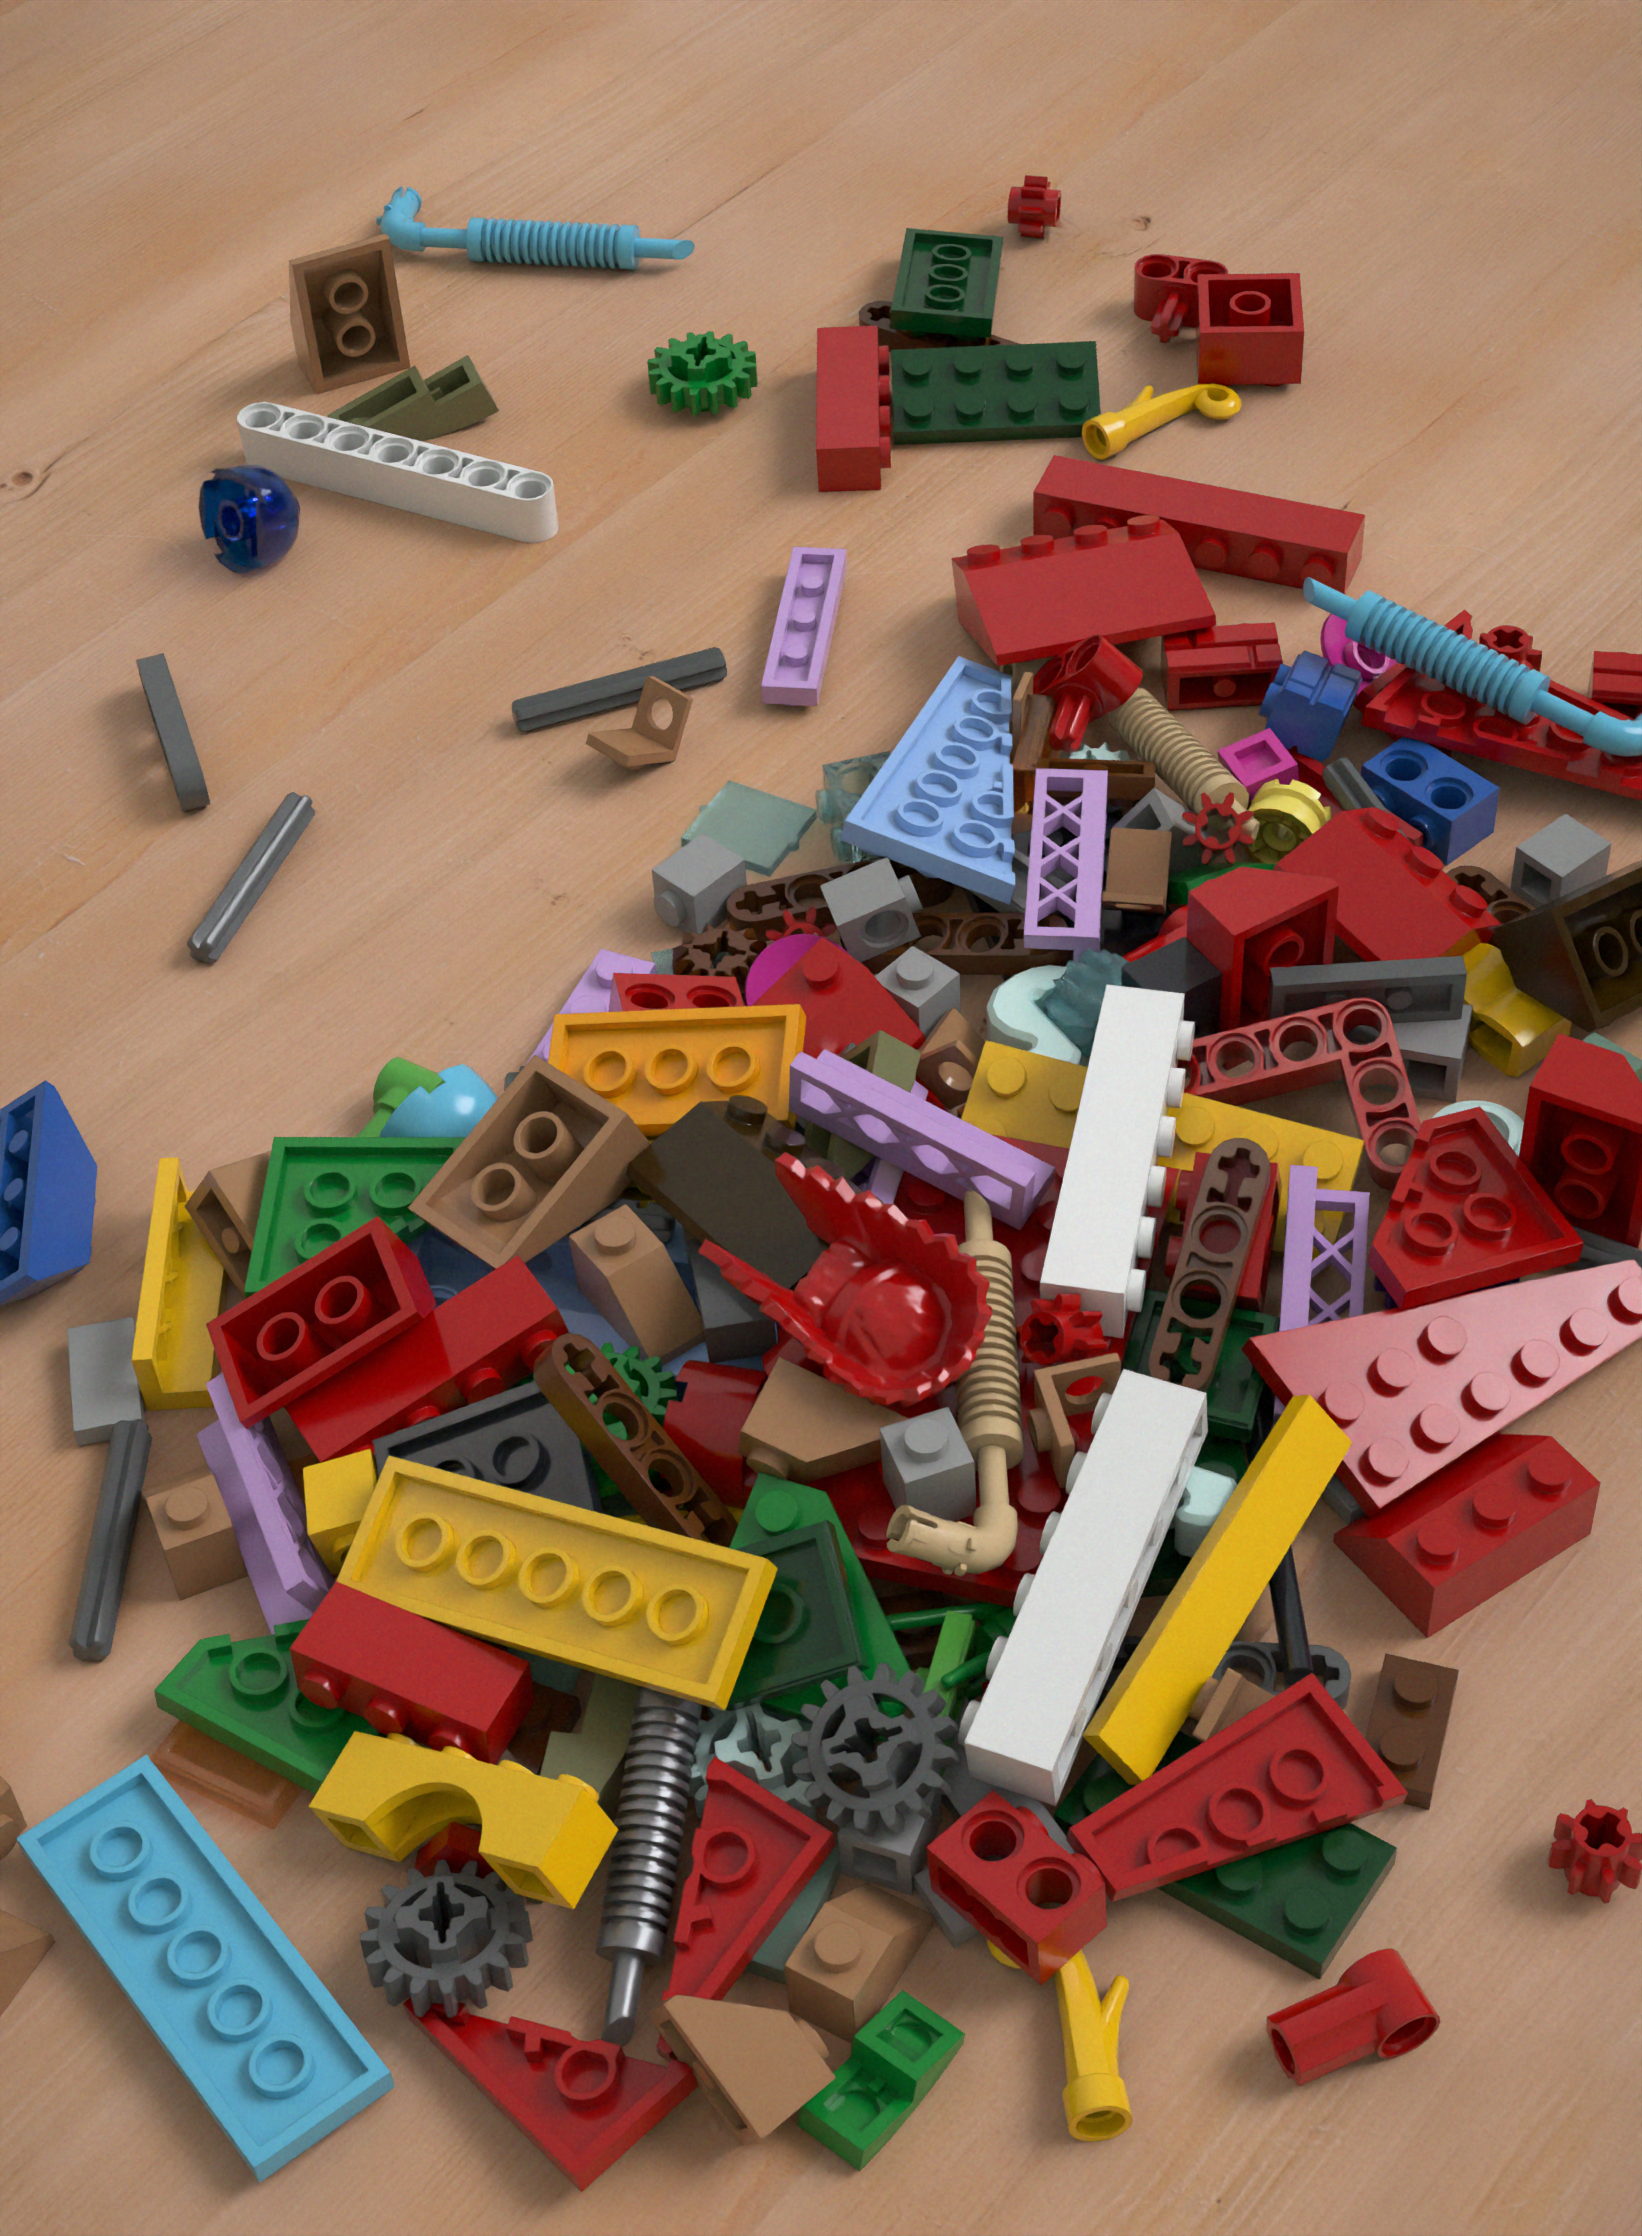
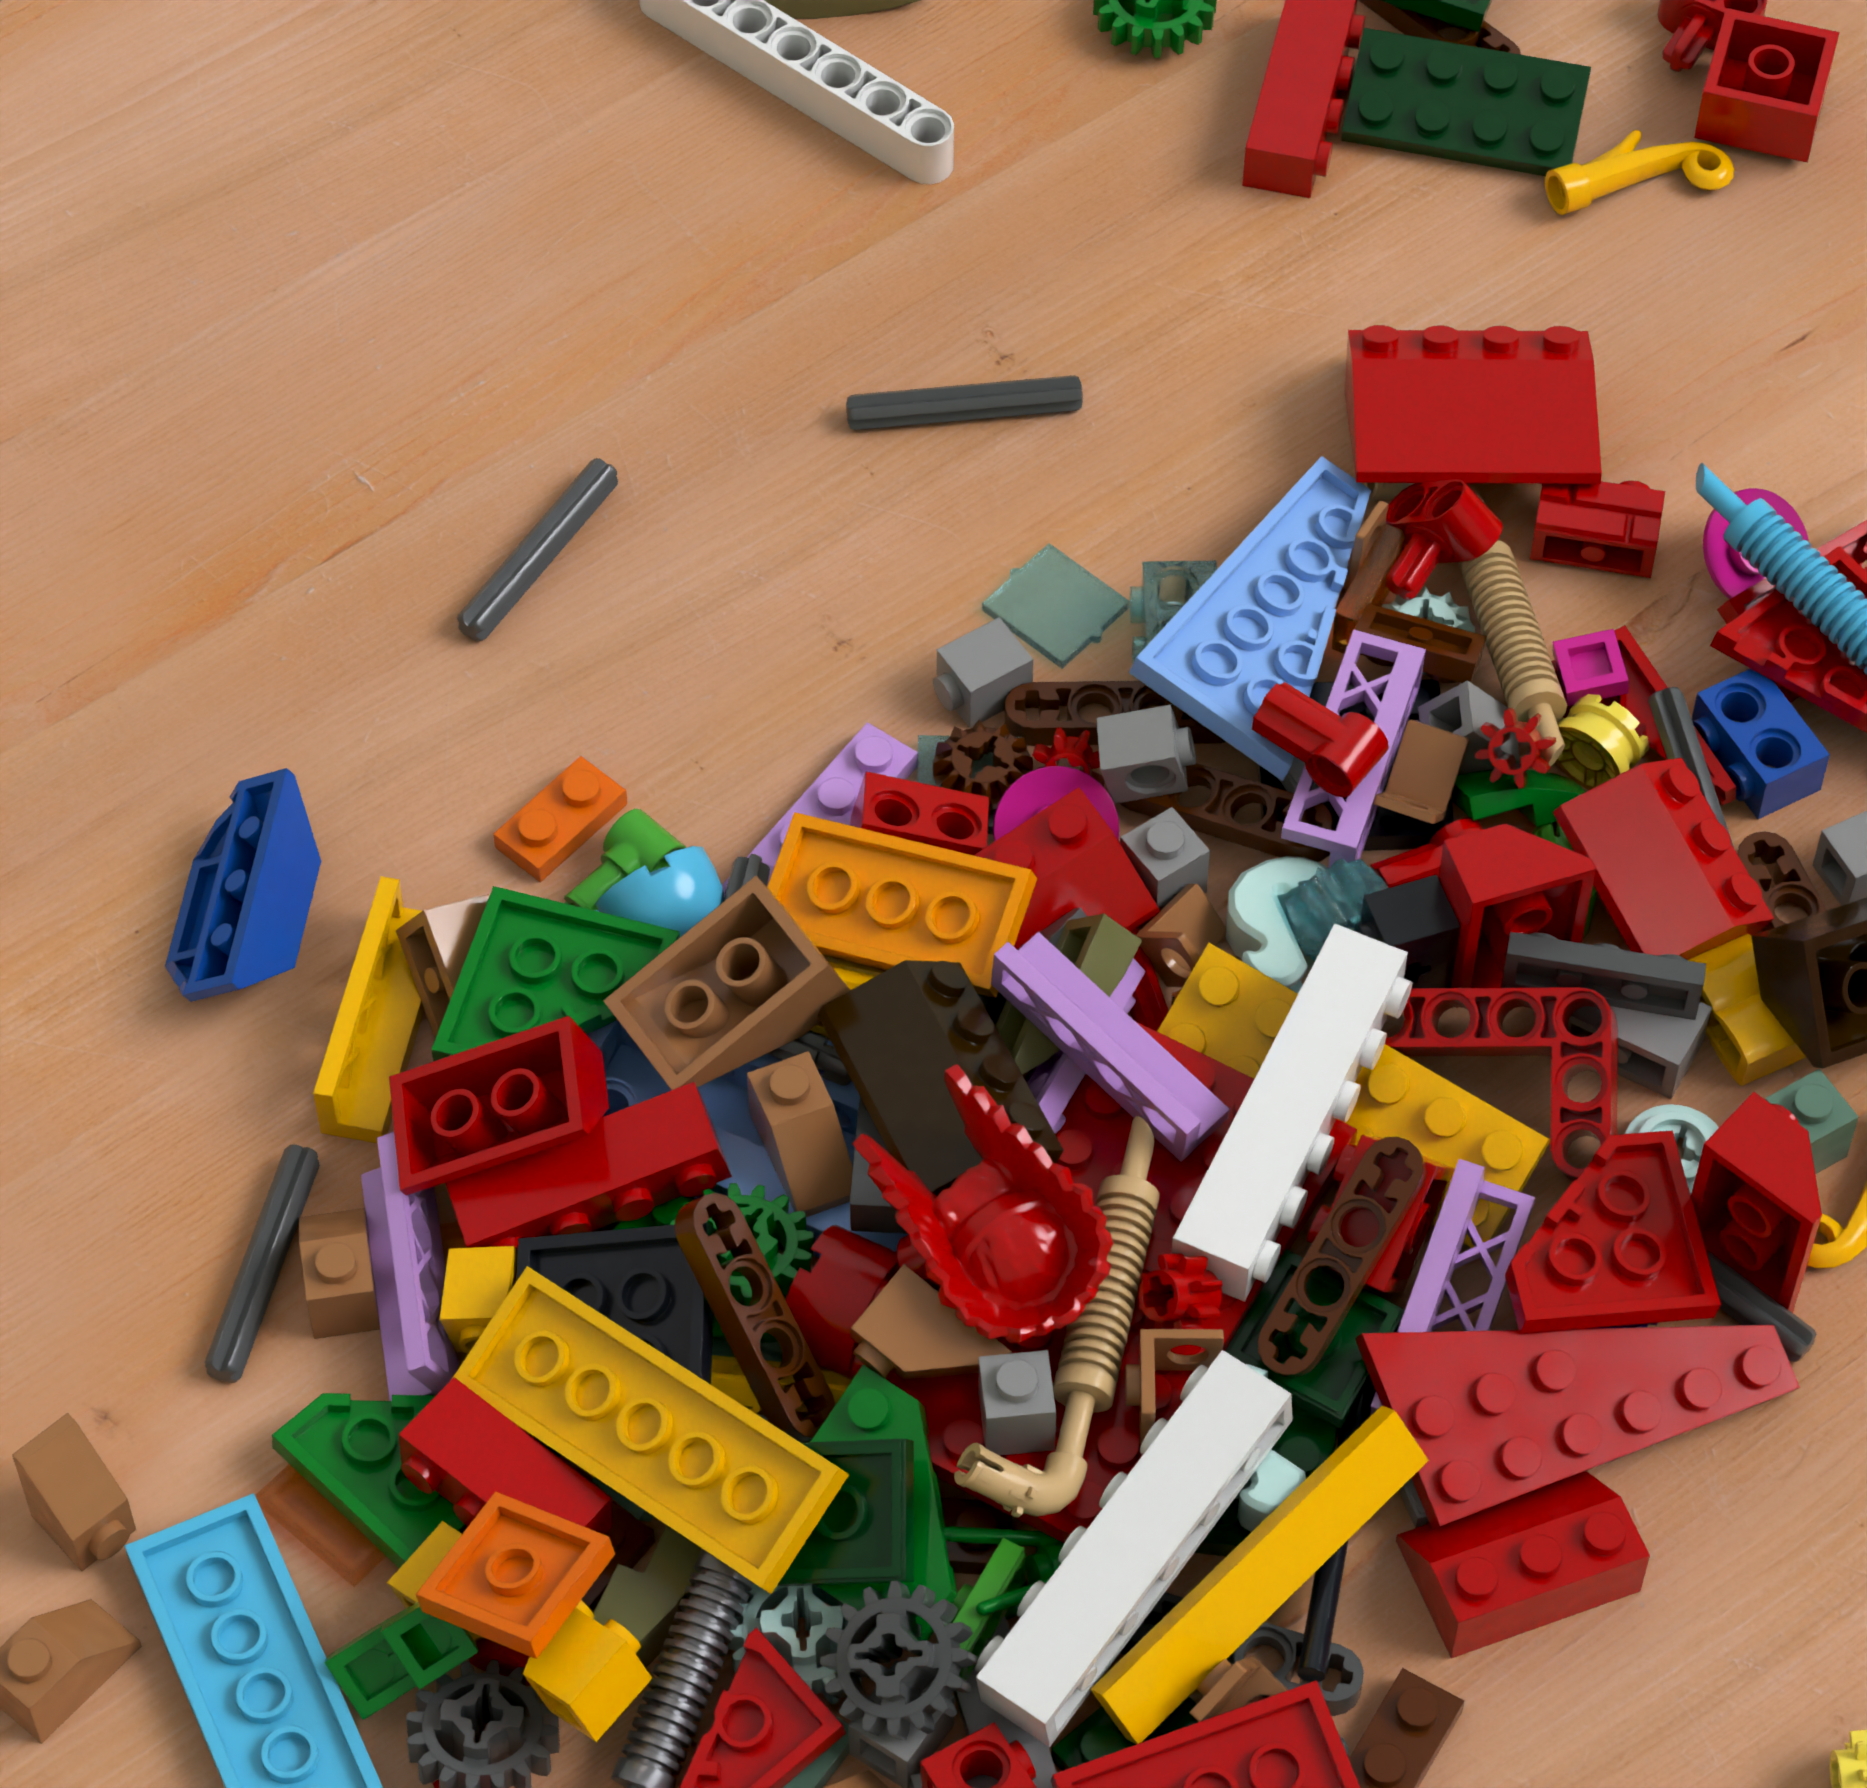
camera: 10 degrees right, 10 degrees up
(103, 1379) = (283, 1092): light grey tile -> none
(173, 732) = (492, 352): dark grey beam -> none
(249, 516) = (626, 94): clear blue cylinder -> none
(325, 1087) = (560, 819): none -> orange plate
(340, 1875) = (397, 1657): none -> green slope
(447, 1752) = (515, 1574): none -> orange plate
(645, 740) = (973, 476): medium nougat bracket -> none
(804, 627) = (1177, 368): lavender plate -> none
(1053, 856) = (1333, 747): none -> red piece
(1219, 526) = (1634, 335): red brick -> none
(1310, 704) = (1669, 603): blue brick -> none

